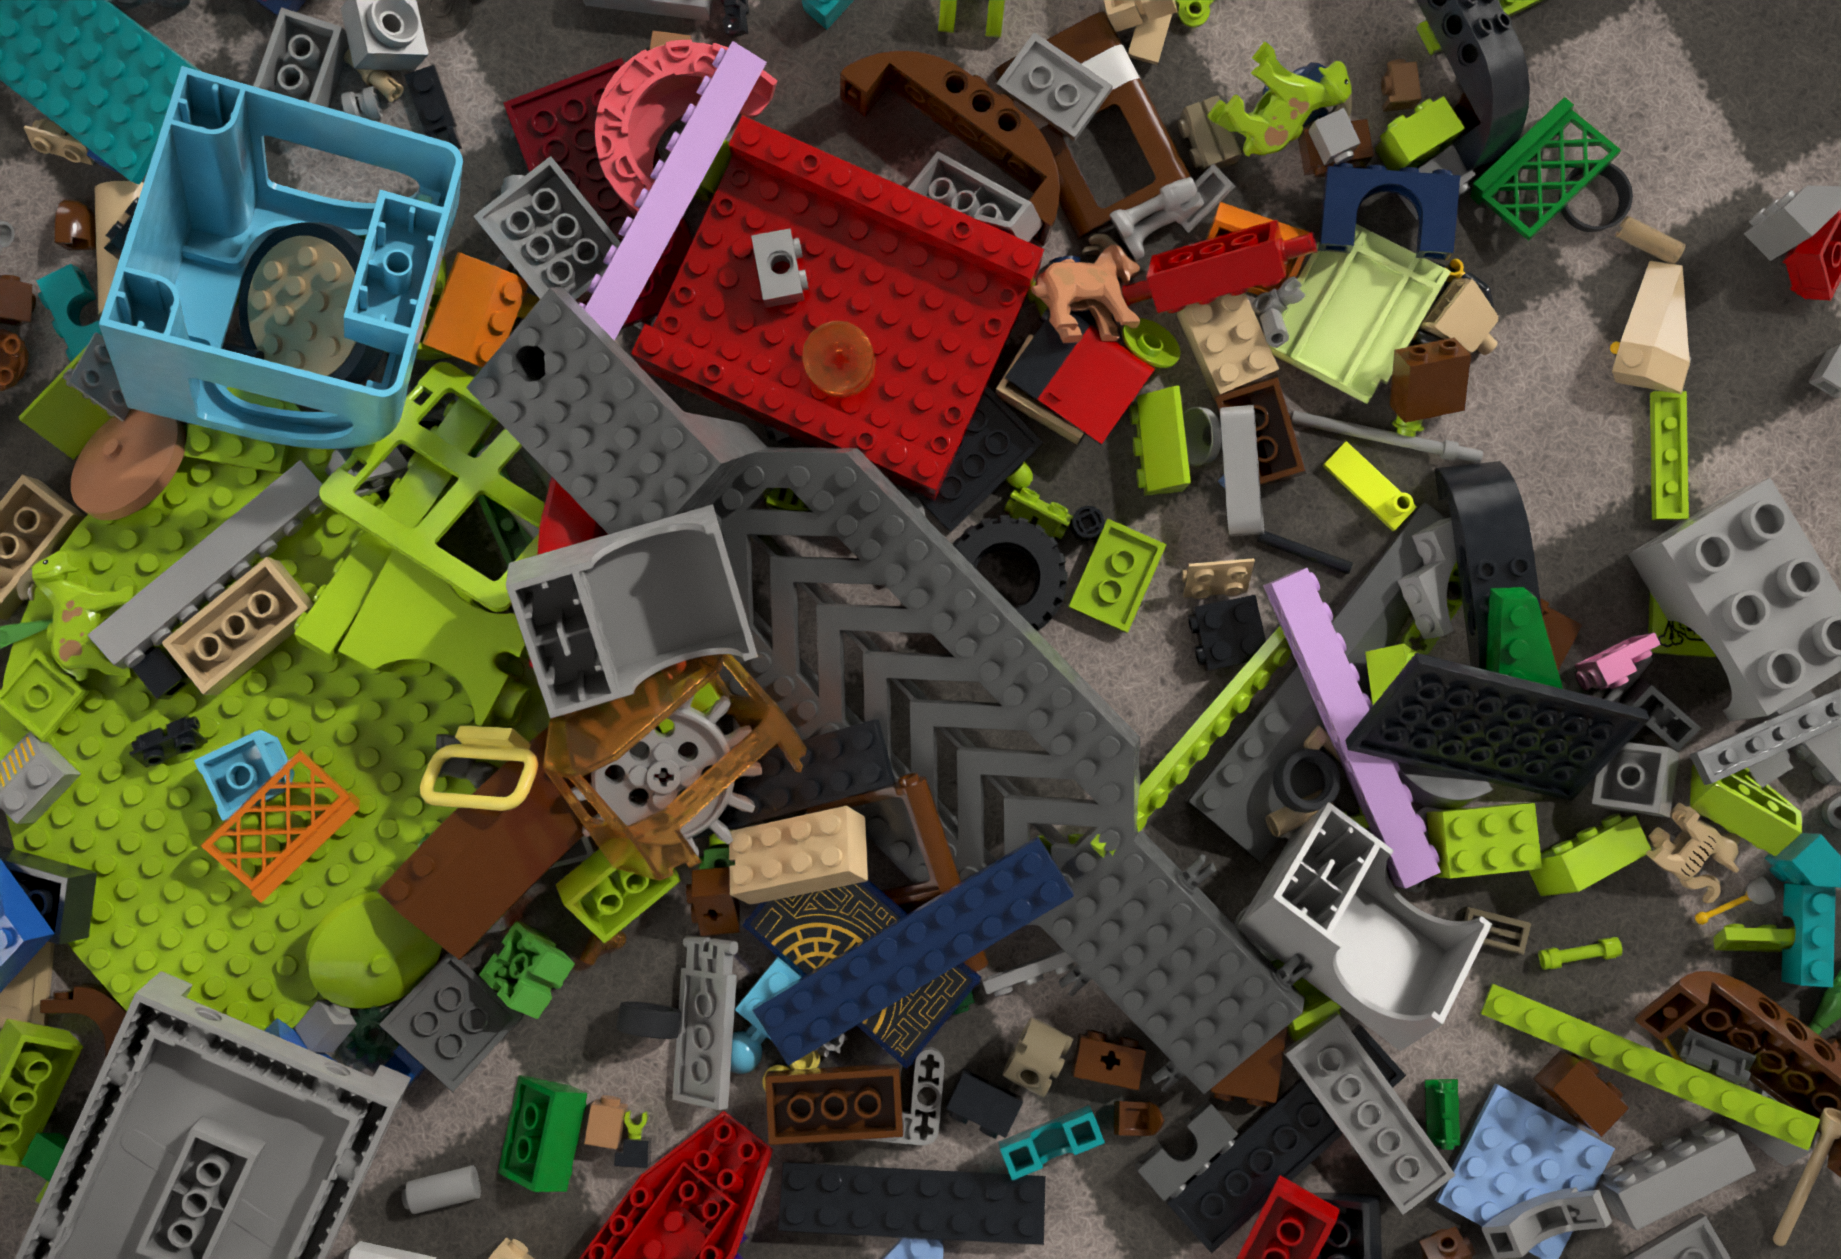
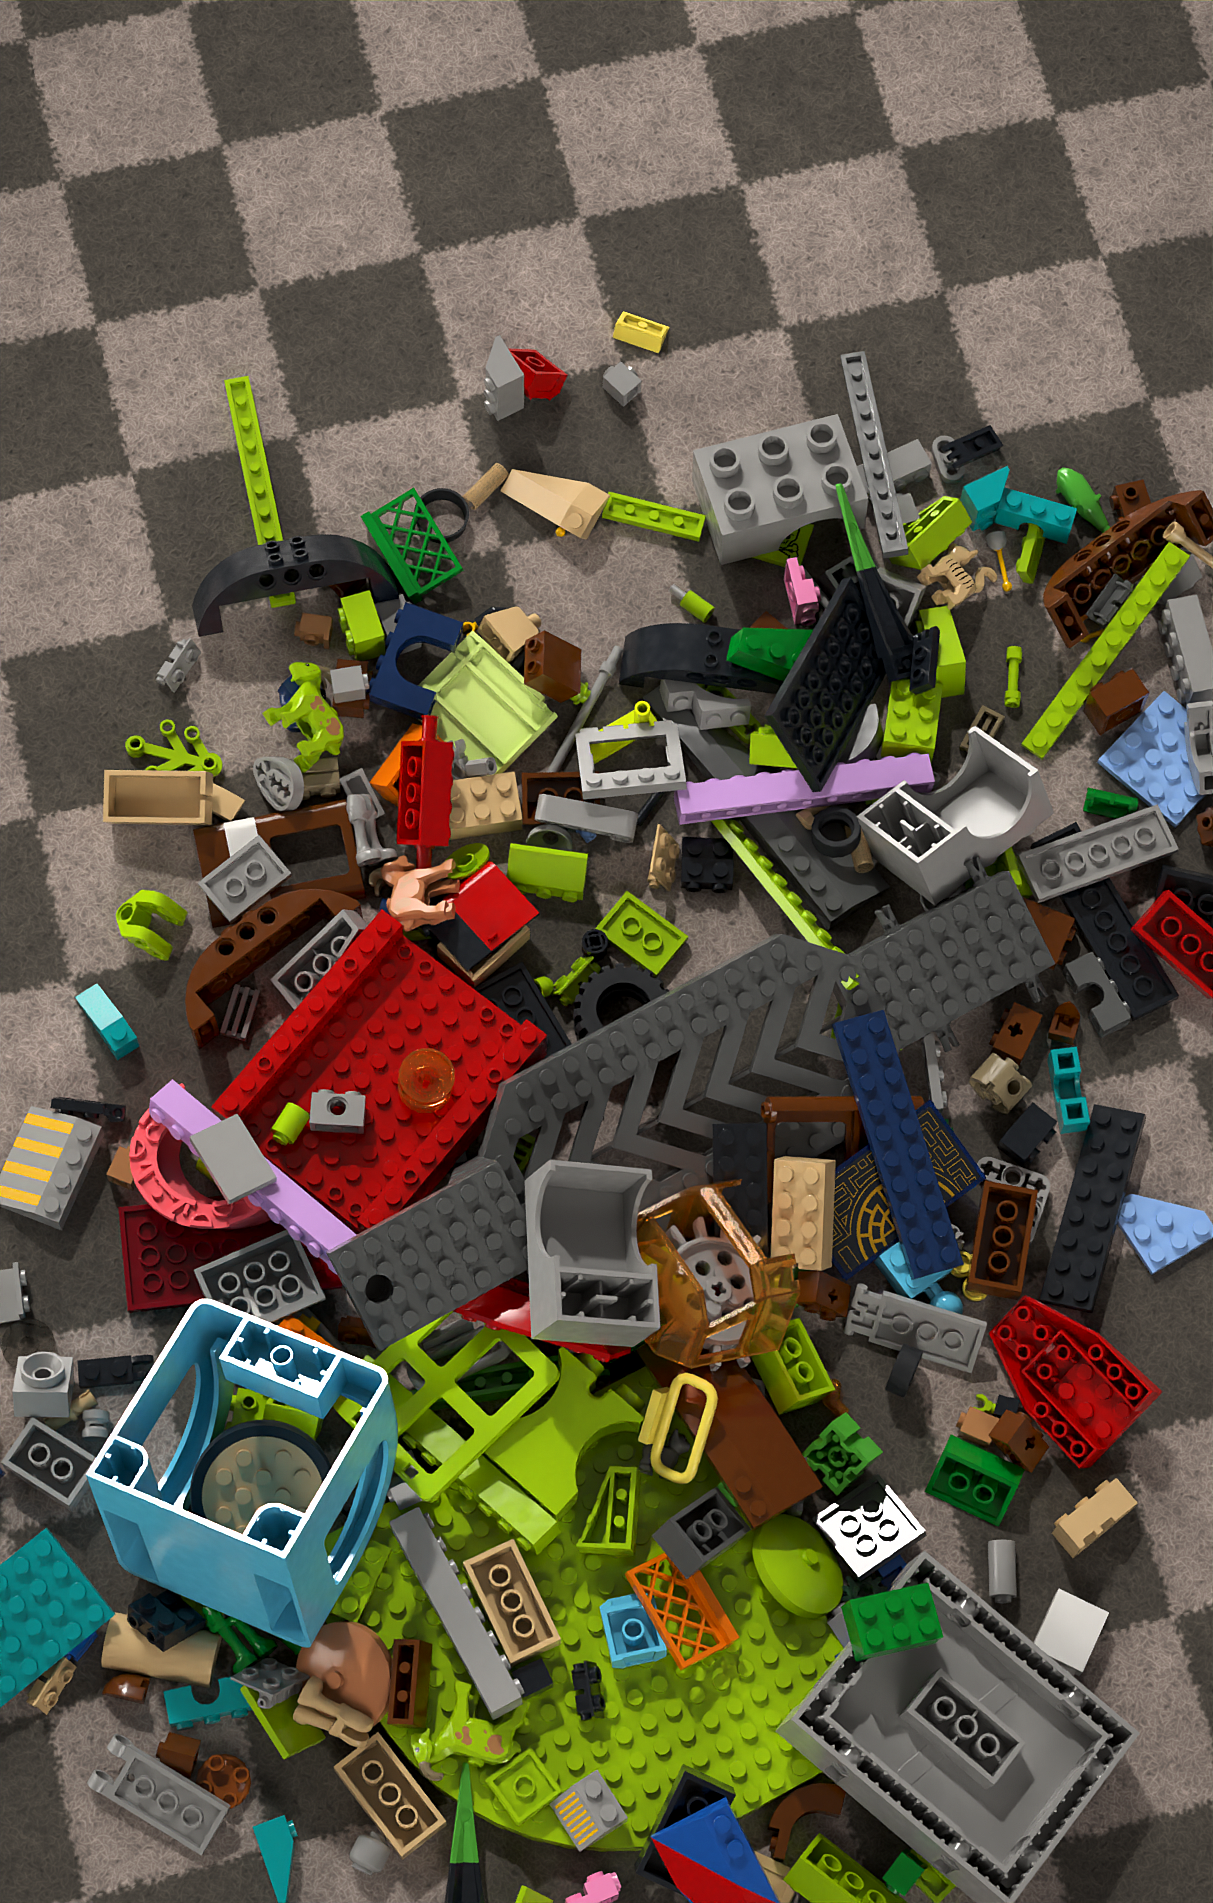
camera: 80 degrees left, 15 degrees down
(69, 468) = (350, 1723): none -> tan piece
(120, 533) = (409, 1683): none -> reddish brown brick
(283, 1088) = (892, 1621): none -> green brick
(365, 827) = (701, 1532): none -> dark grey brick
(373, 721) = (615, 1515): none -> lime wedge
(595, 1178) = (1019, 1440): none -> reddish brown brick
(676, 155) = (233, 1159): none -> light grey tile
(748, 215) = (289, 1124): none -> lime brick
(896, 144) = (246, 992): none -> light grey tile
(1189, 94) = (270, 773): none -> light grey piece
(1299, 515) = (631, 781): none -> hinge
(1565, 533) = (693, 603): none -> lime piece
(1565, 839) = (924, 660): none -> black hinge
(1592, 786) = (889, 631): none -> black plate

